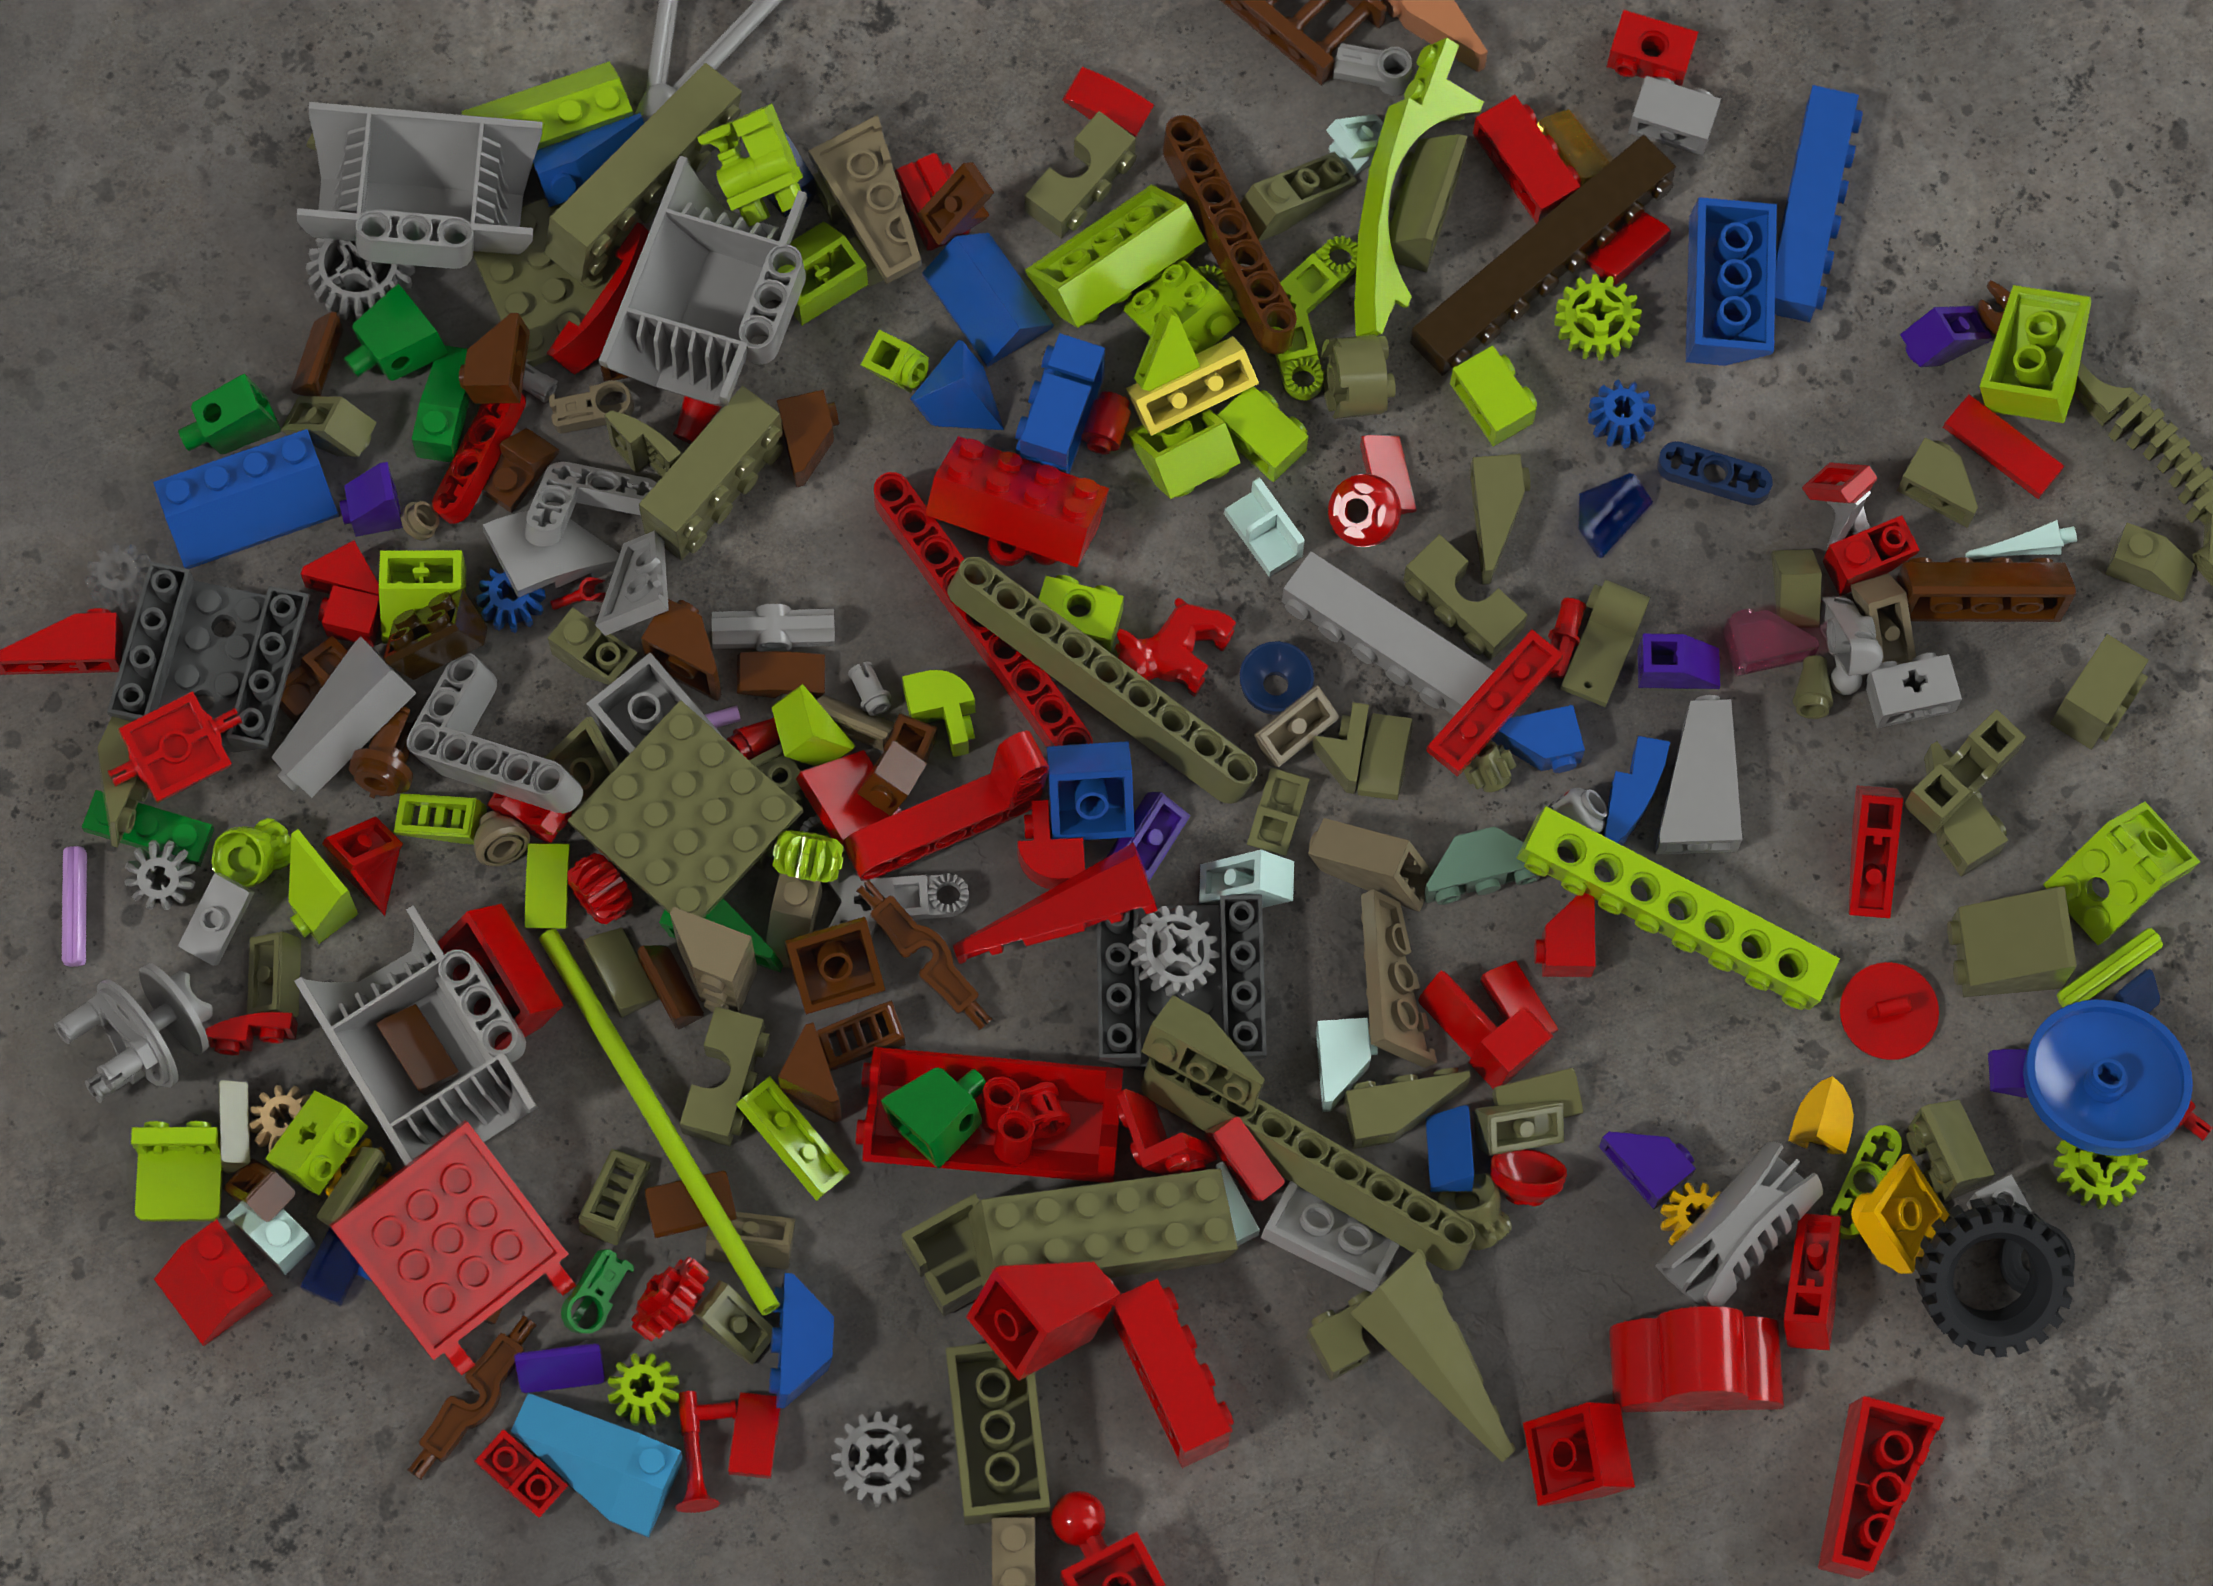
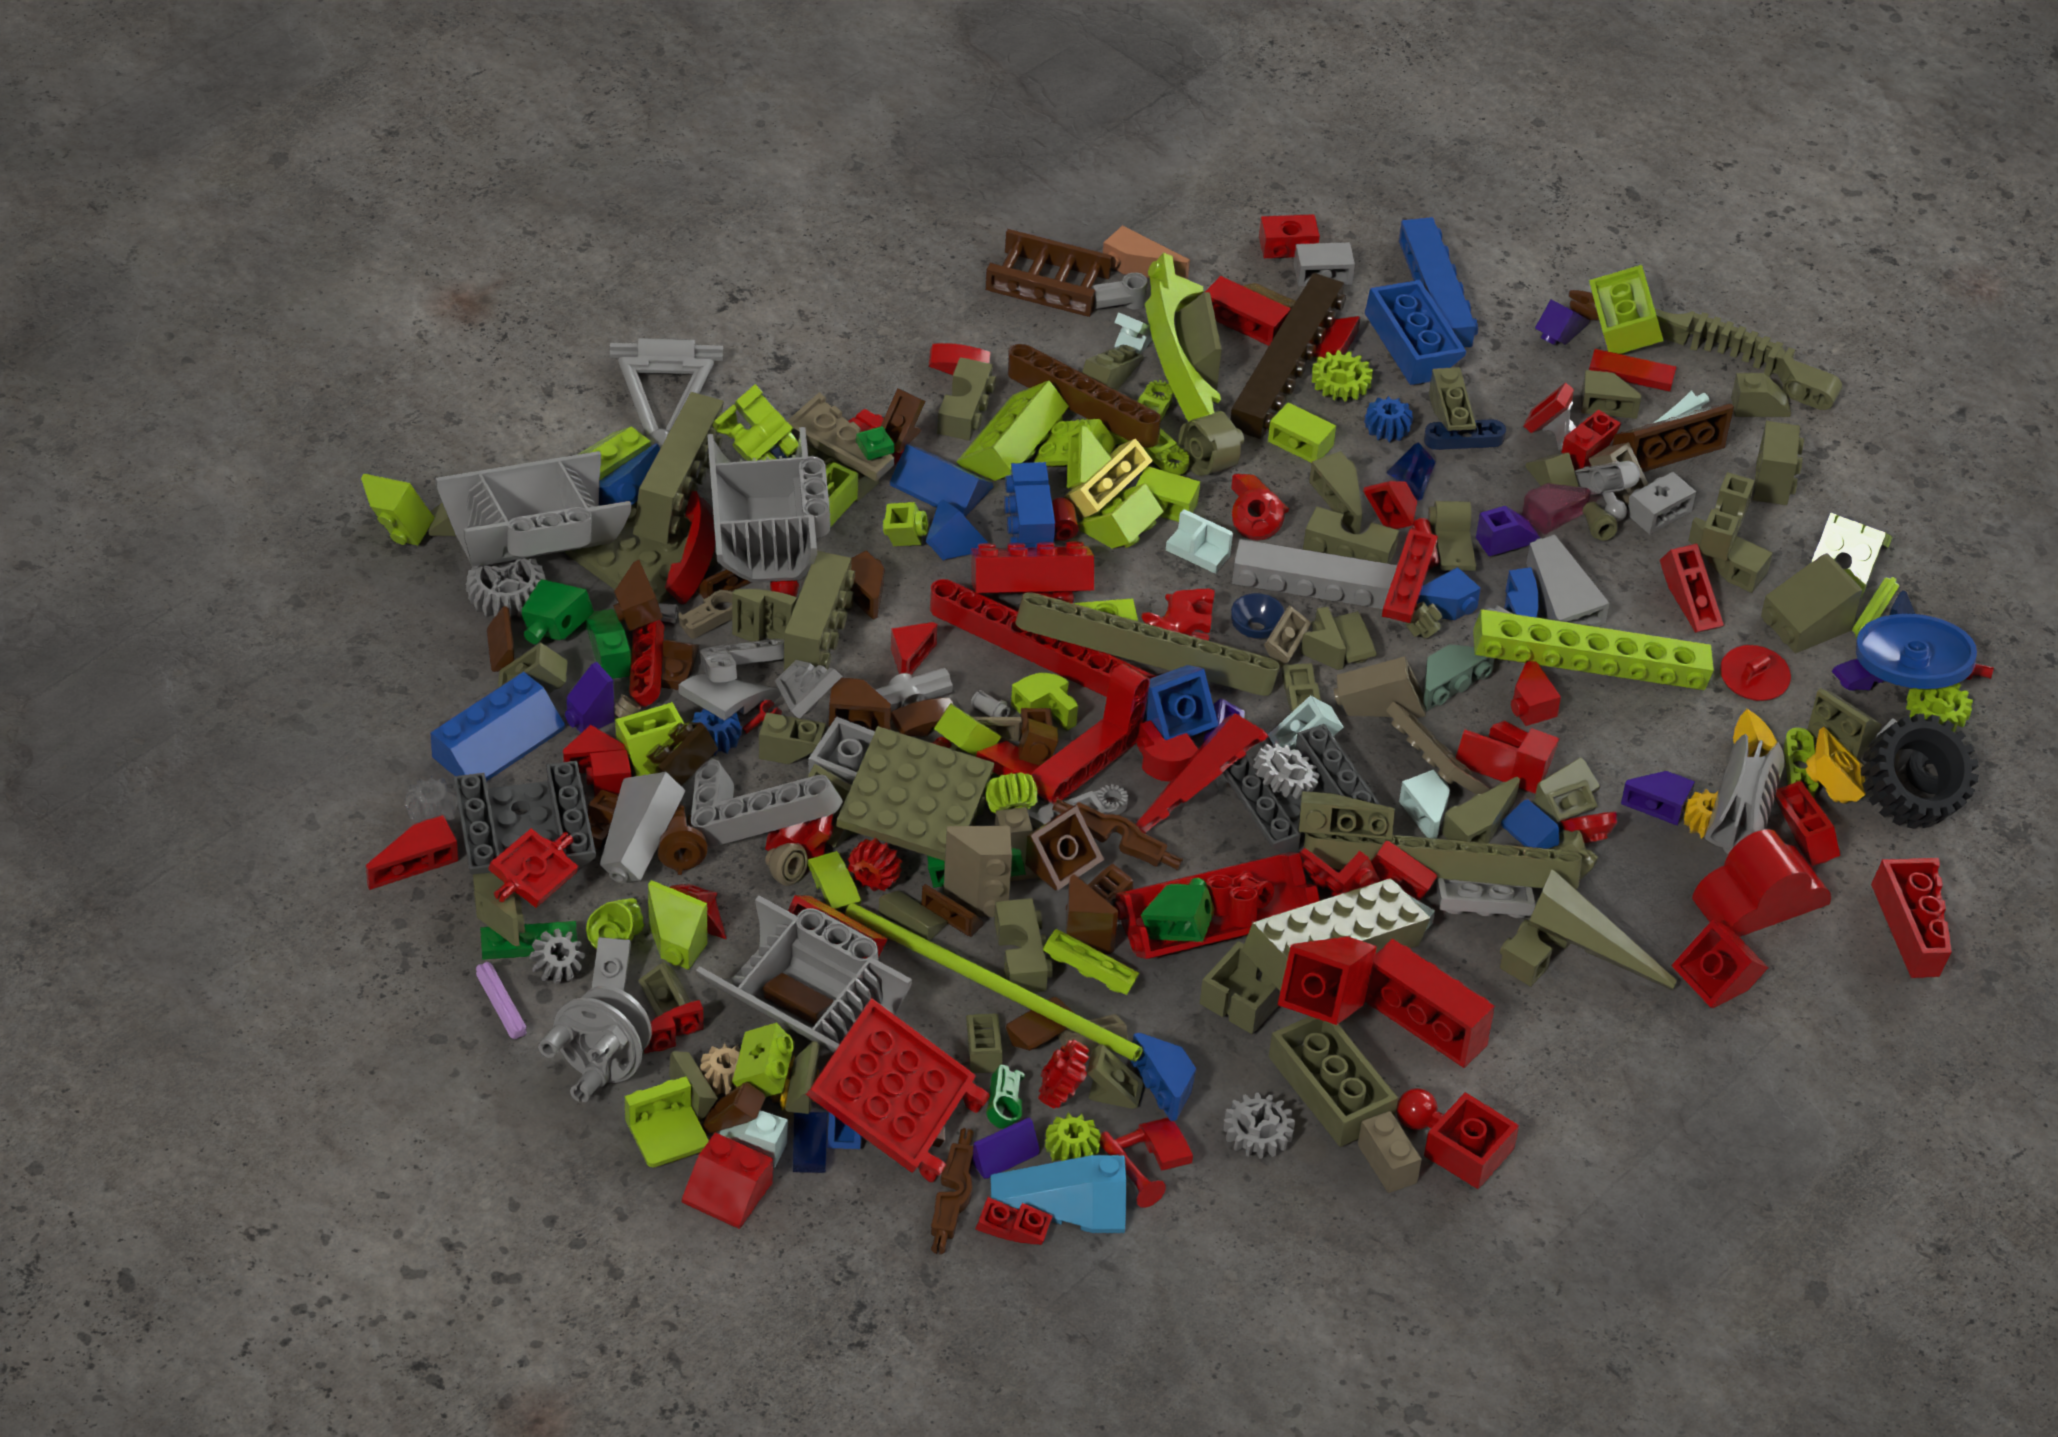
camera: 25 degrees left, 25 degrees down
(230, 417) = (462, 683): green torso -> none
(265, 107) = (398, 508): none -> lime slope
(464, 811) = (746, 875): lime slope -> none
(815, 558) = (912, 645): none -> red slope
(904, 231) = (875, 443): none -> green plate
(1545, 564) = (1392, 503): none -> red slope
(1716, 423) = (1451, 399): none -> olive slope

